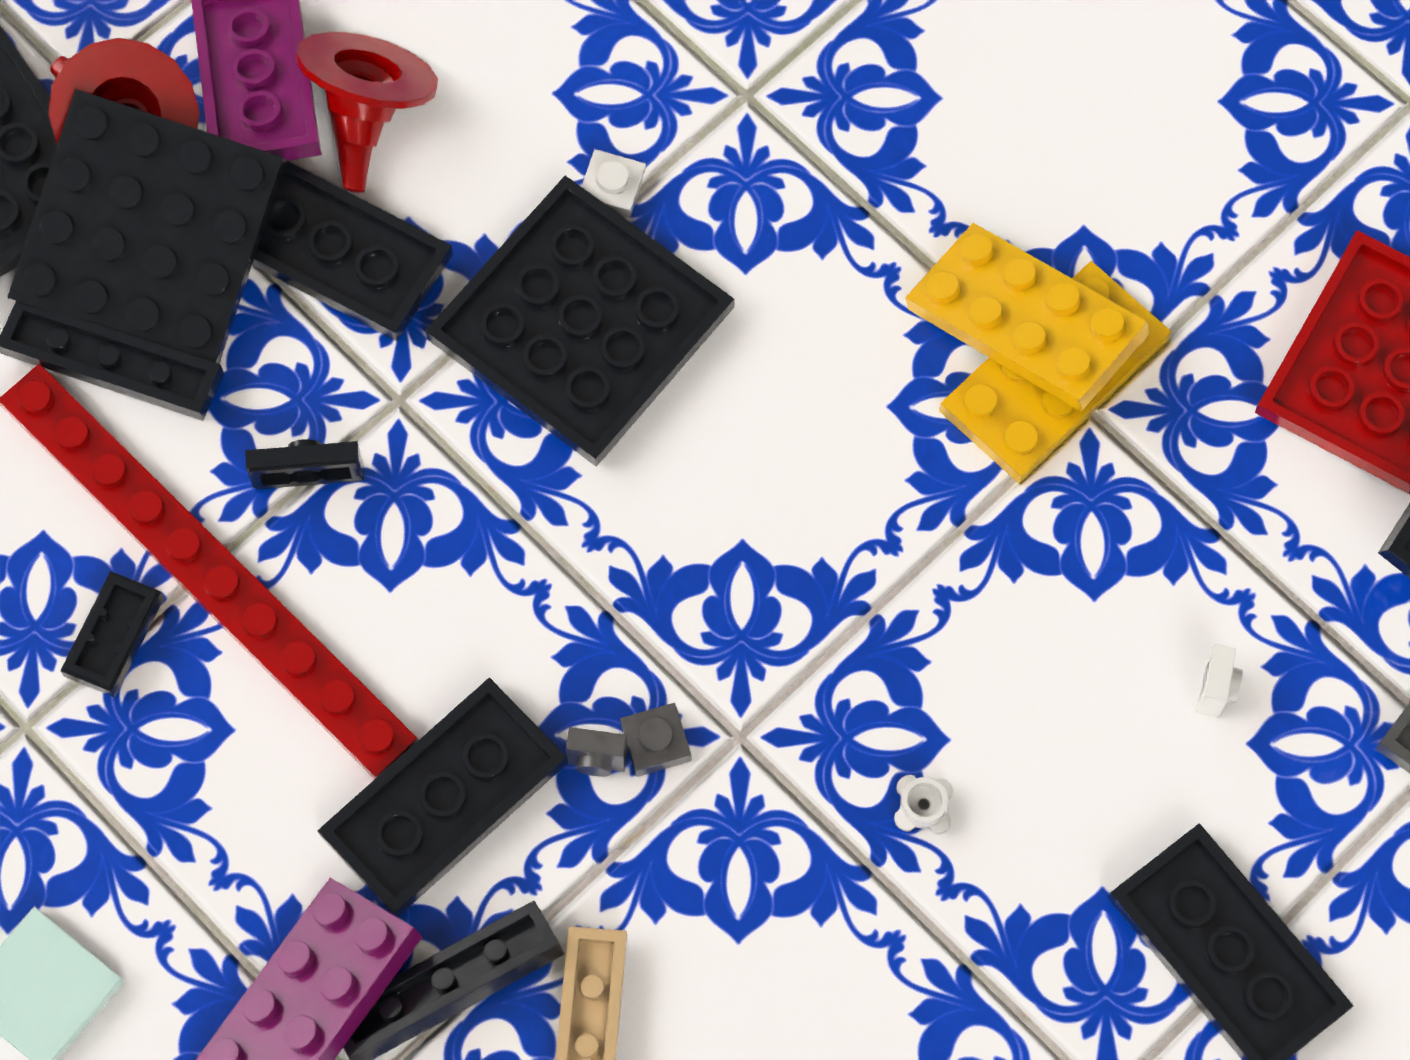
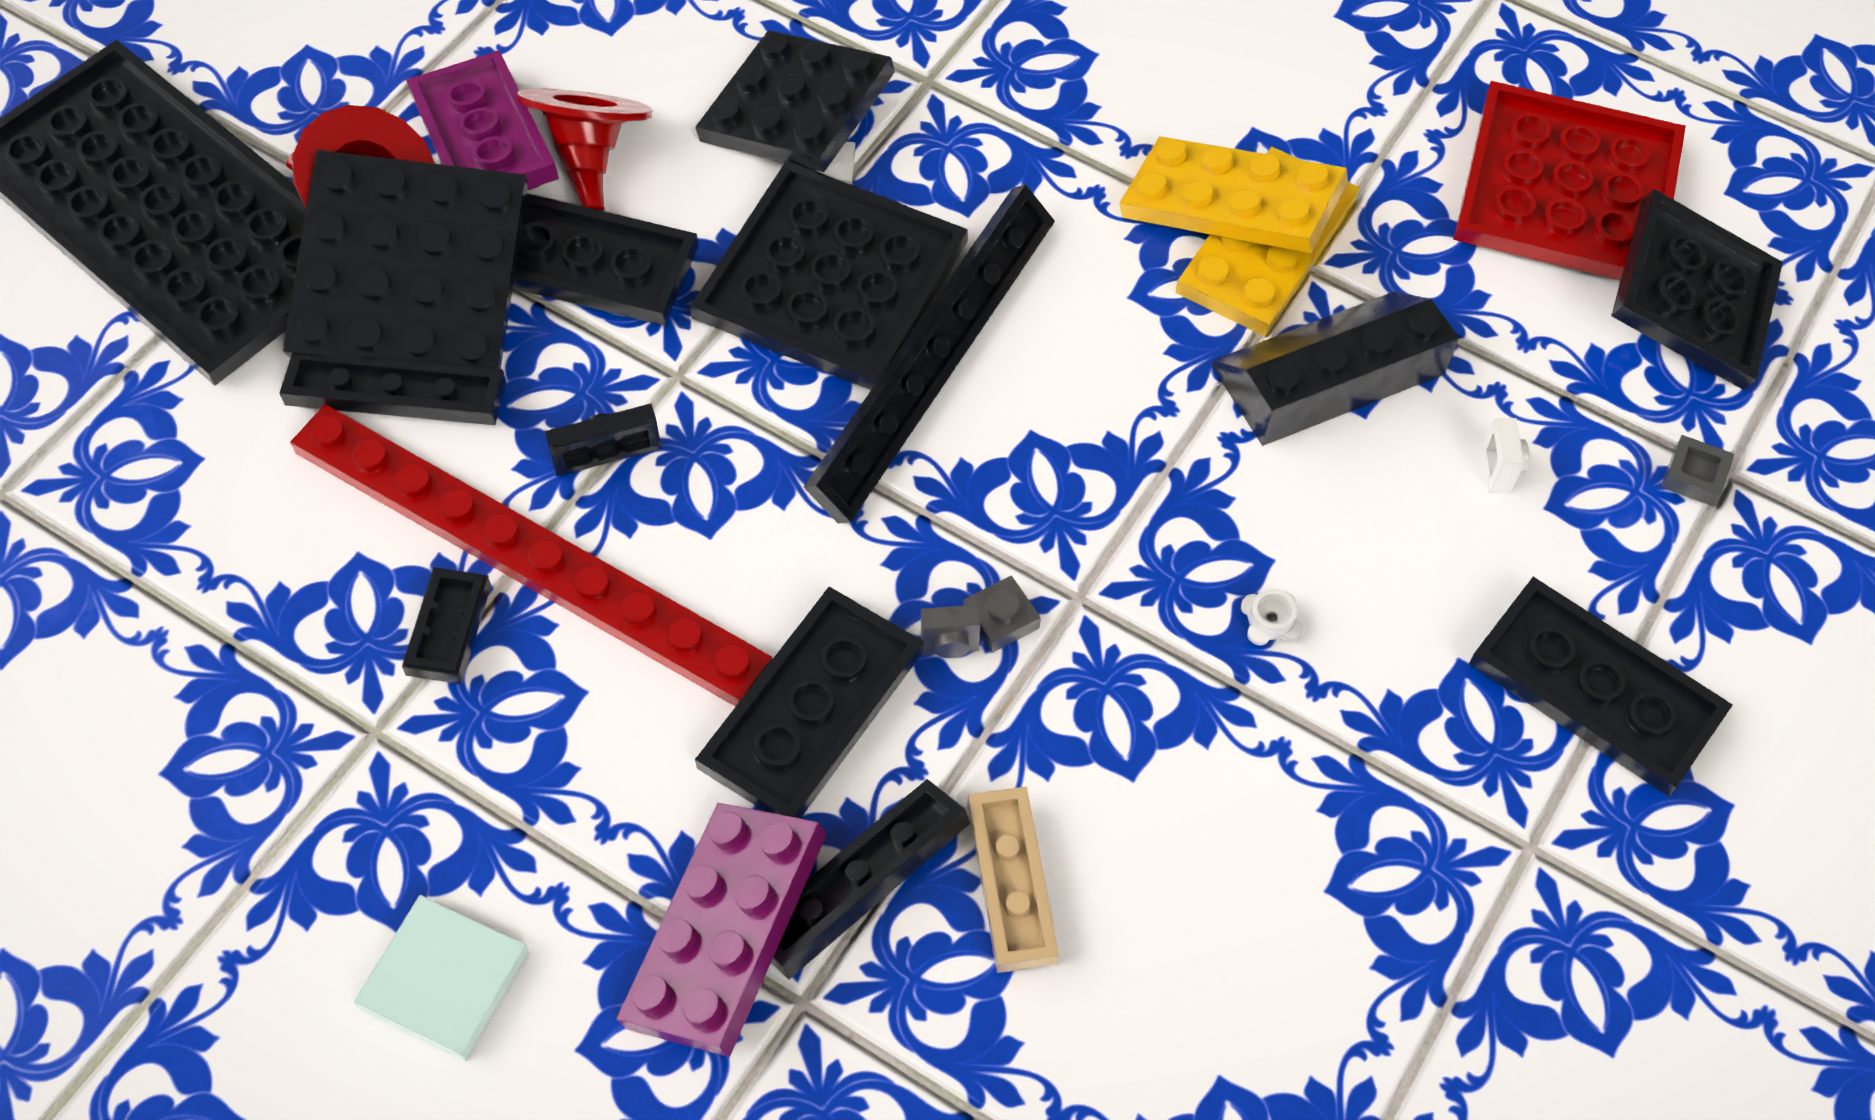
camera: 15 degrees left, 10 degrees down
(594, 100) = (795, 100): none -> black plate
(661, 433) = (929, 356): none -> black plate
(1077, 534) = (1337, 364): none -> black slope

